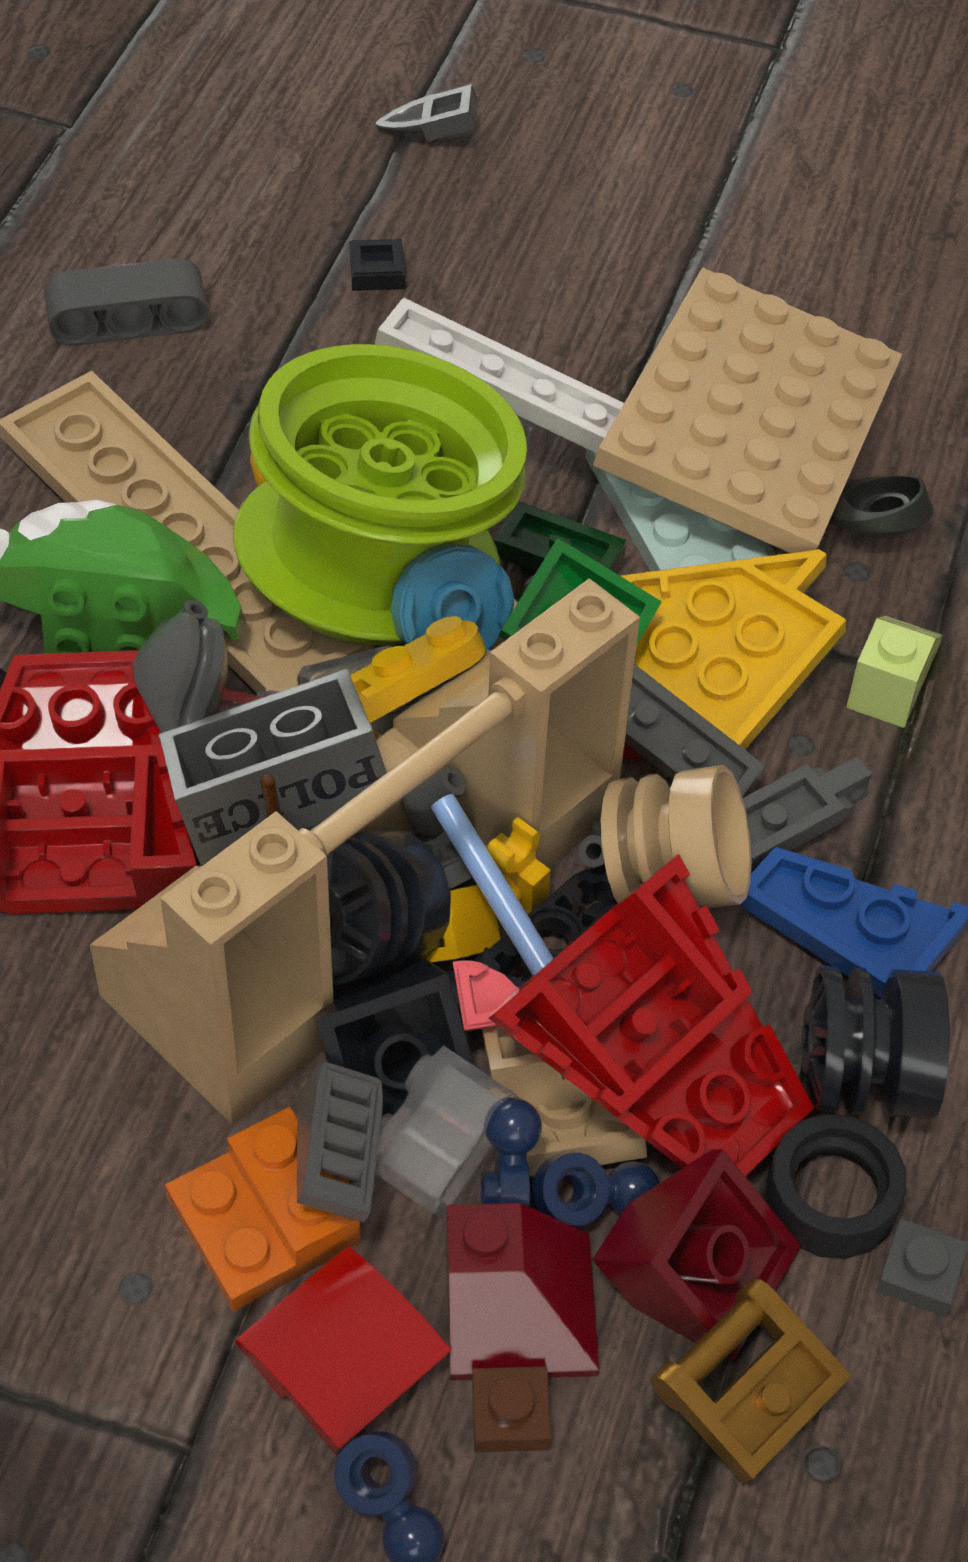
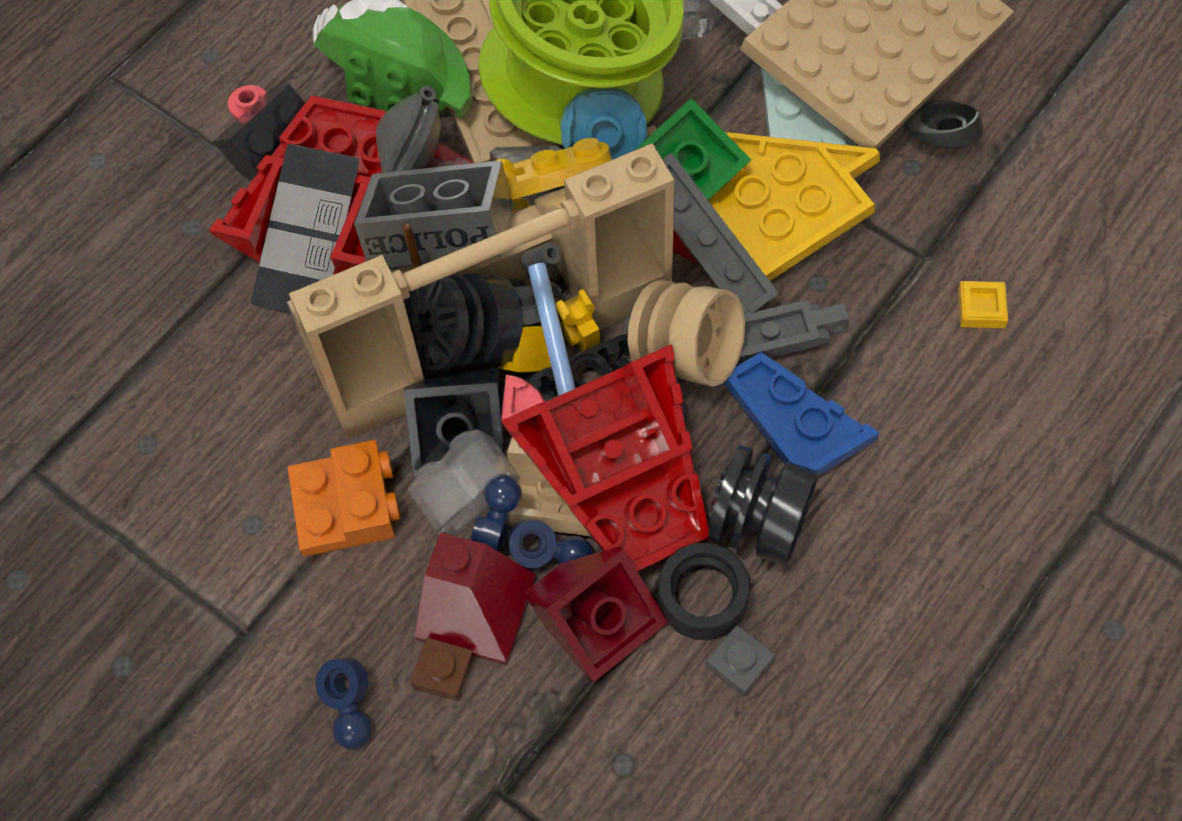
camera: 25 degrees right, 10 degrees up
(66, 842) = (304, 223): none -> sticker
(342, 1347) = (354, 600): red slope -> none
(352, 1102) = (404, 446): dark grey slope -> none
(532, 532) = (718, 102): dark green plate -> none
(769, 1397) = (601, 713): pearl gold plate -> none
(892, 670) = (902, 244): yellowish green slope -> none

